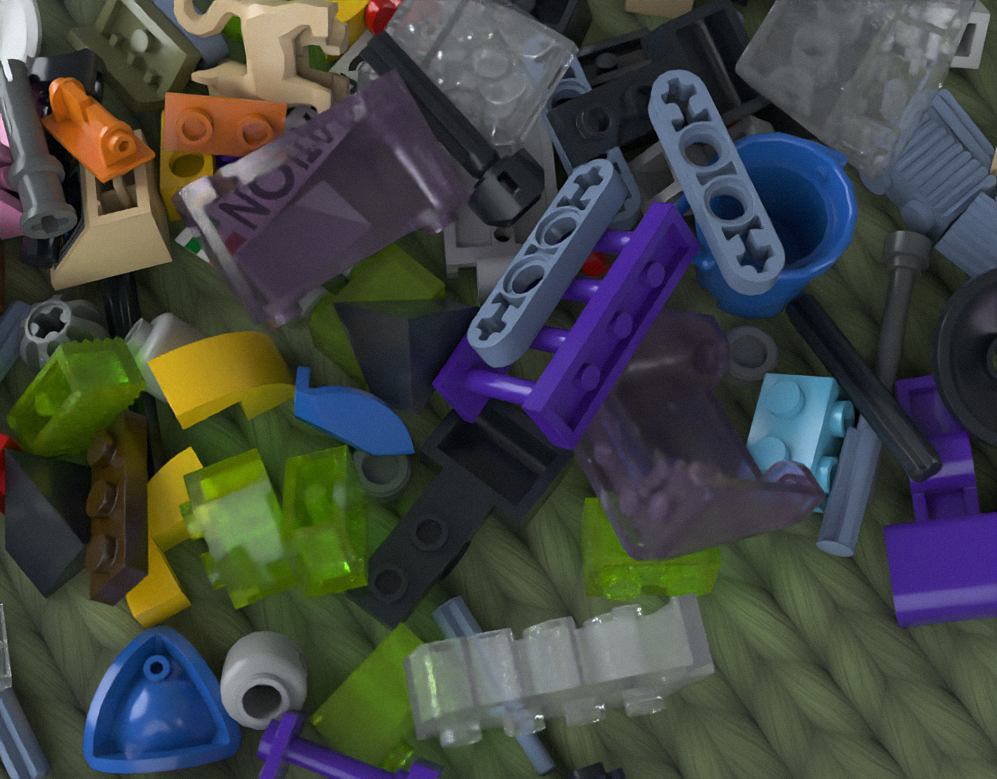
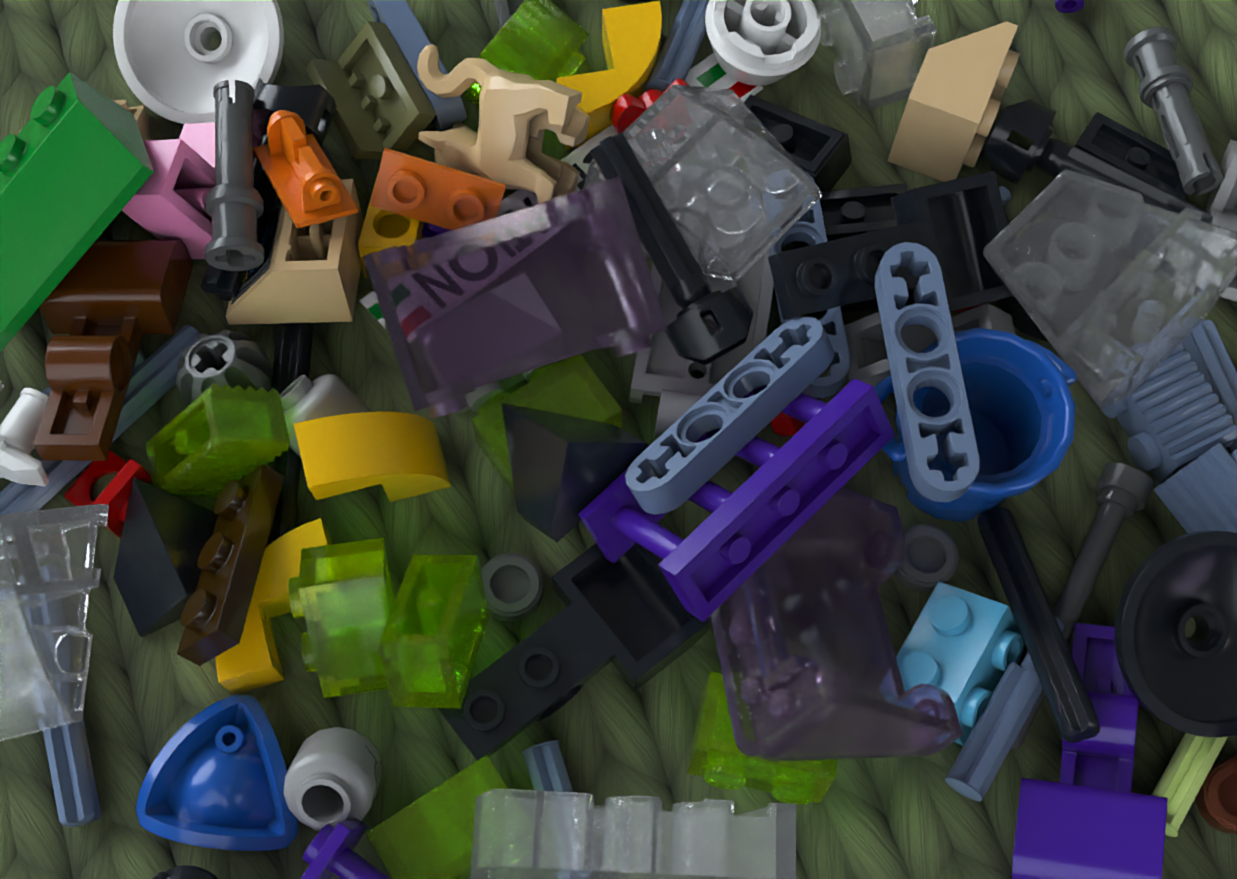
camera: 15 degrees right, 0 degrees up
(351, 417) = (488, 526): blue hat -> none

